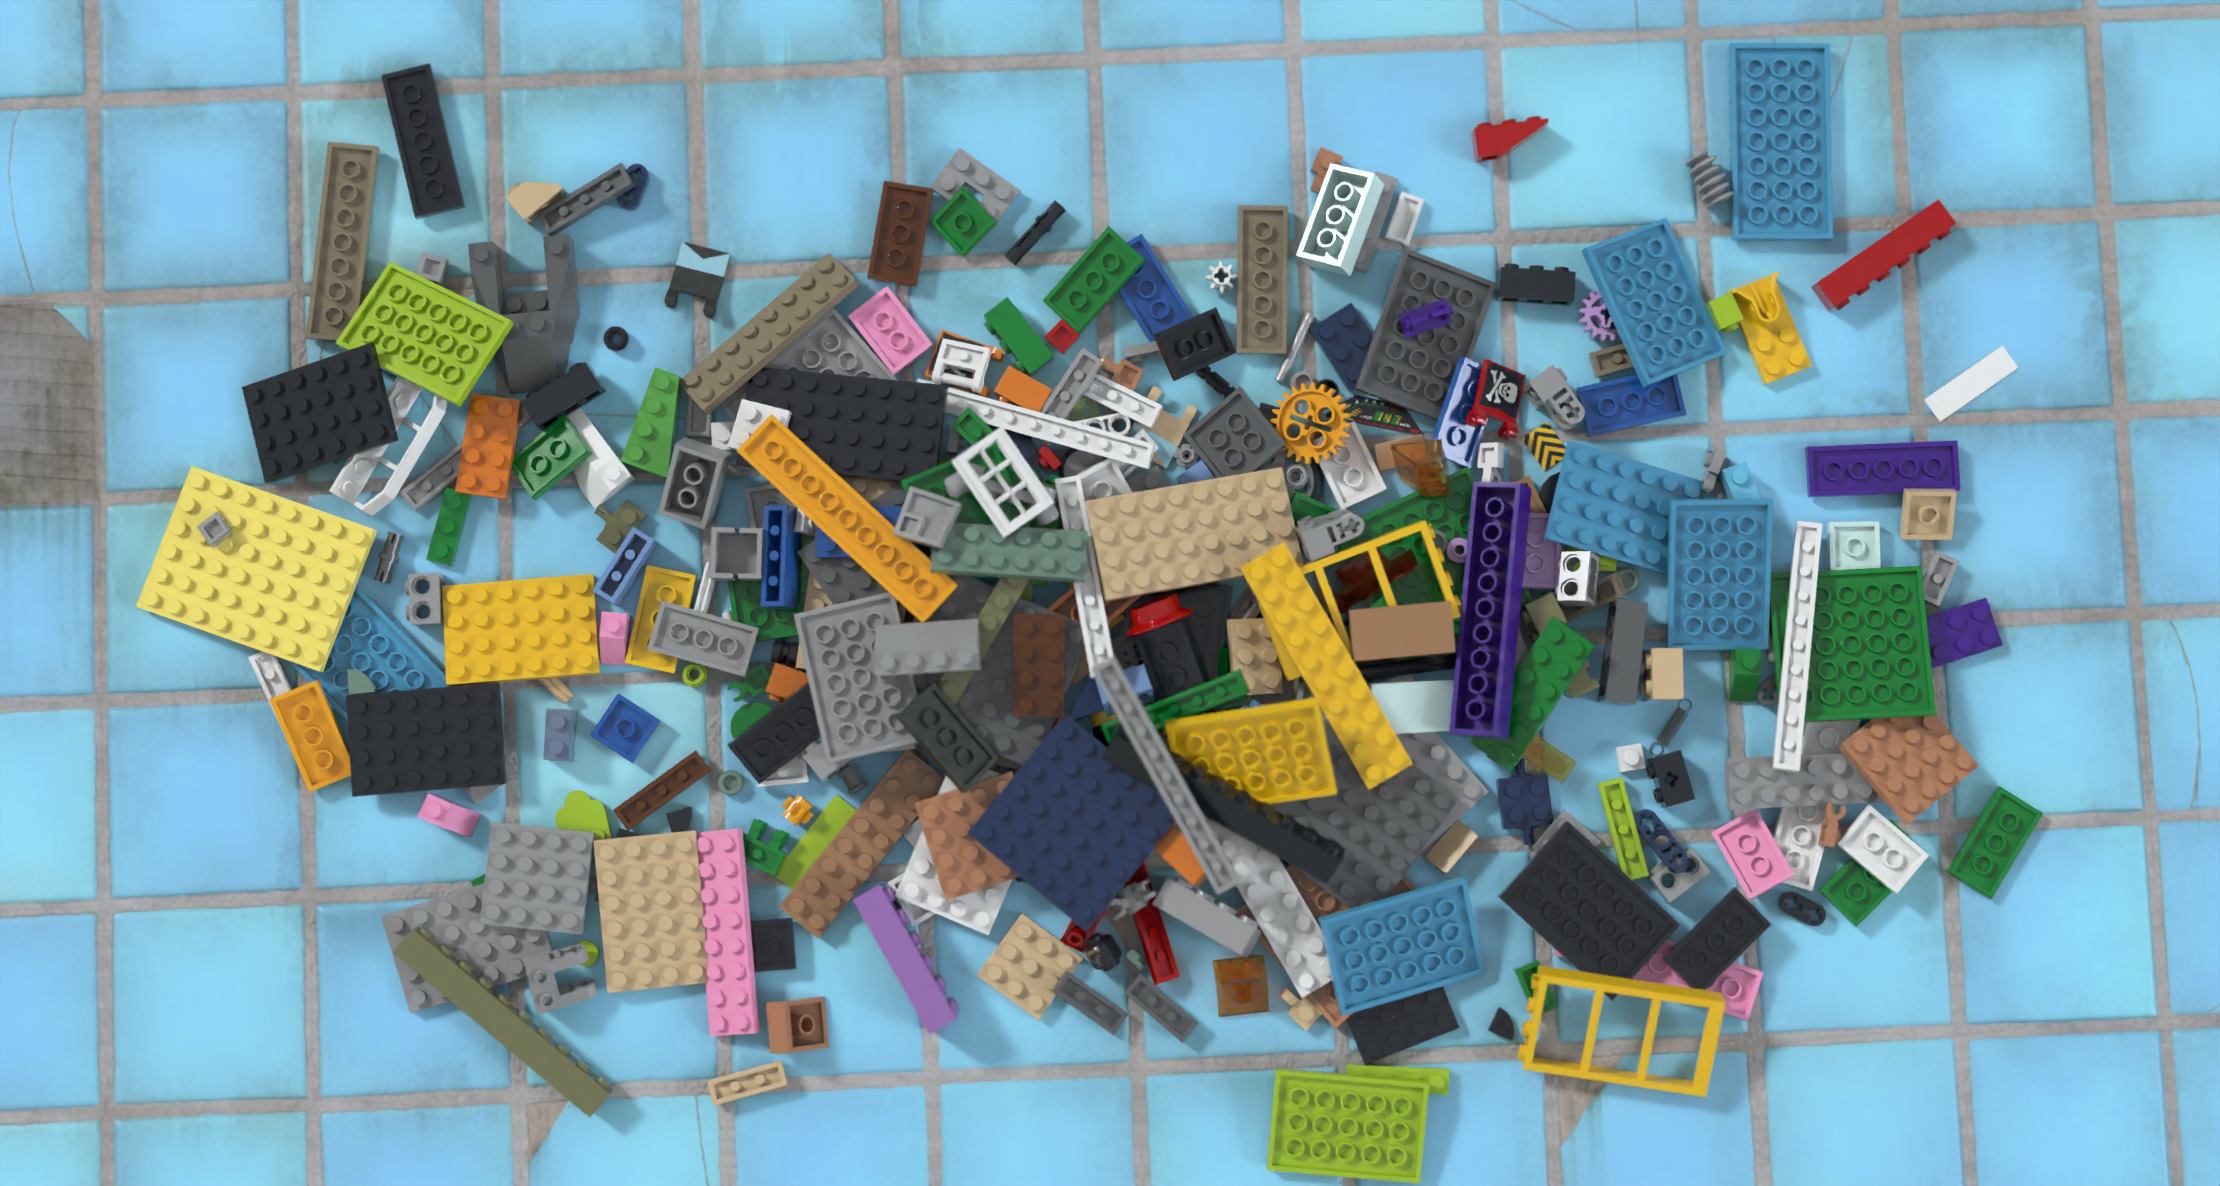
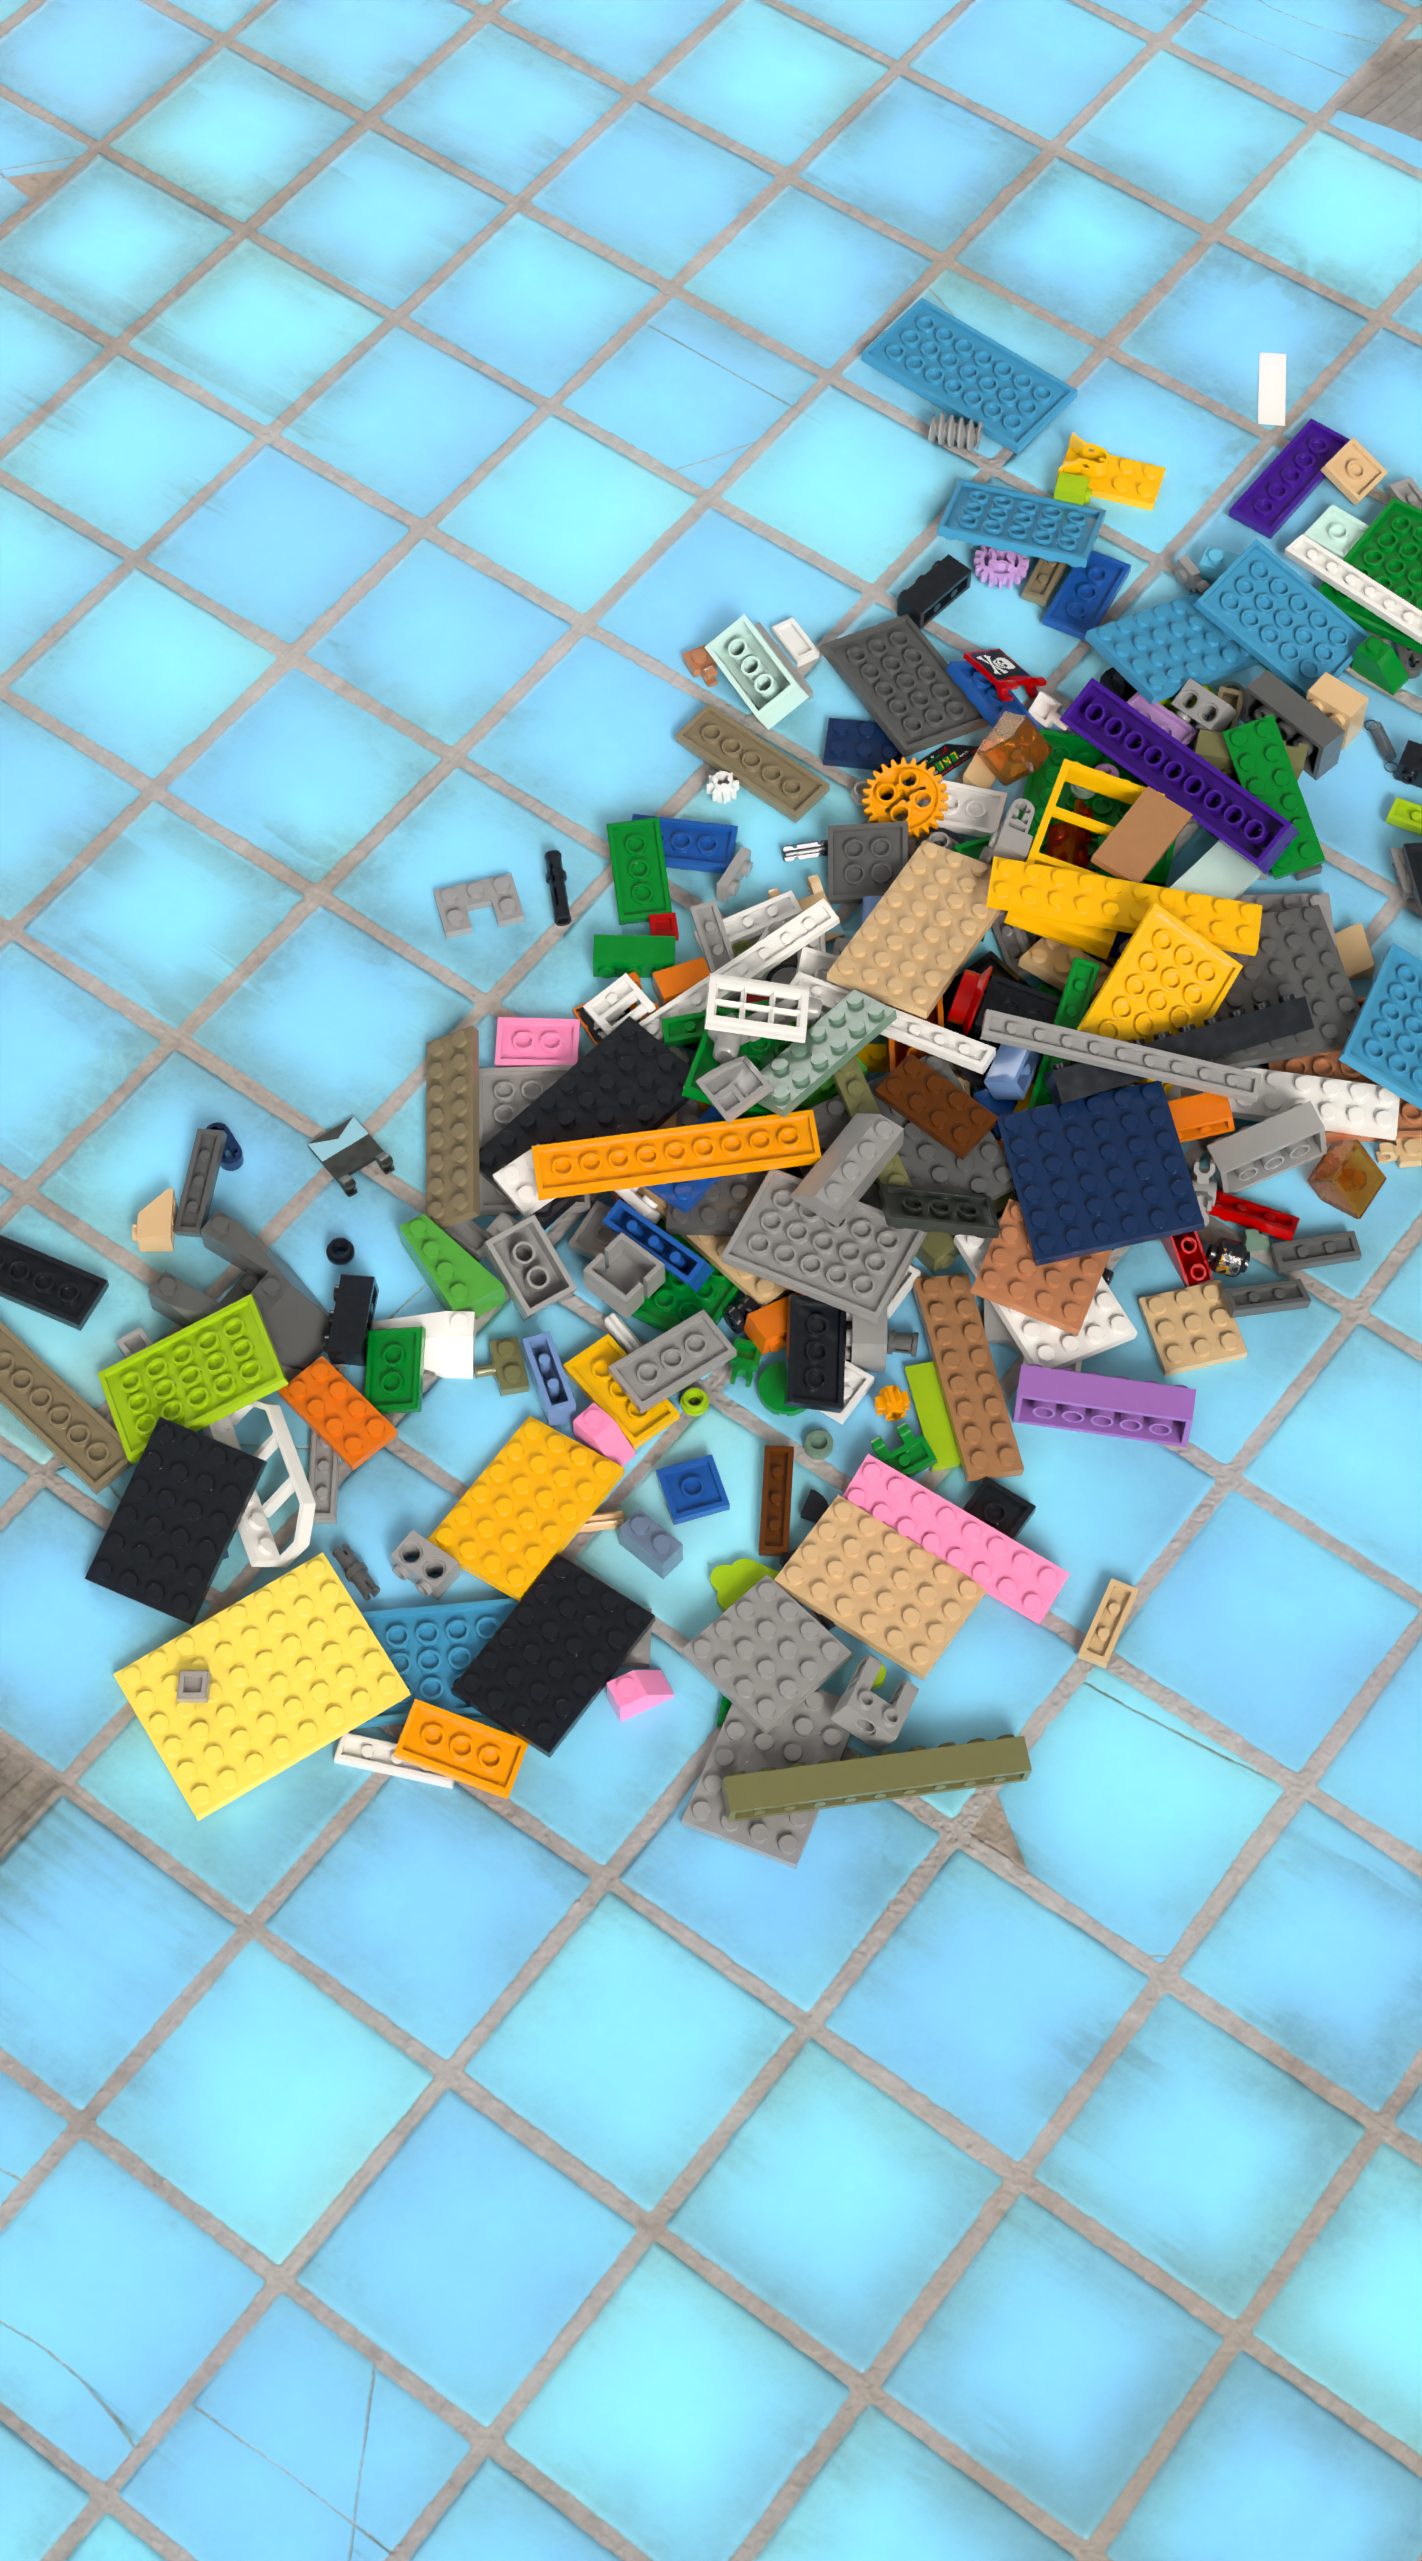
camera: 50 degrees left, 25 degrees down
(359, 683) = (448, 1670): sand green tile -> none
(448, 527) = (376, 1504): green plate -> none
(797, 1025) = (1088, 1544): nougat slope -> none
(900, 234) = (463, 980): reddish brown plate -> none
(963, 222) = (498, 928): green tile -> none
(1124, 373) = (736, 902): nougat plate -> none
(1186, 462) = (848, 918): light grey plate -> none
(1194, 344) = (761, 835): black plate -> none
(1294, 348) = (827, 777): light grey bar -> none
(1408, 667) = (1184, 858): black axle -> none
(1426, 318) = (893, 666): dark purple hinge -> none
(1496, 141) = (791, 540): red slope -> none
(1524, 801) = (1359, 879): dark blue plate -> none
(1545, 446) = (1069, 675): sticker -> none
(1549, 759) = (1340, 836): clear yellow plate -> none
(1552, 390) = (1033, 630): light grey brick -> none
(1630, 757) = (1383, 786): white plate -> none
(1883, 255) = (1120, 371): red brick -> none

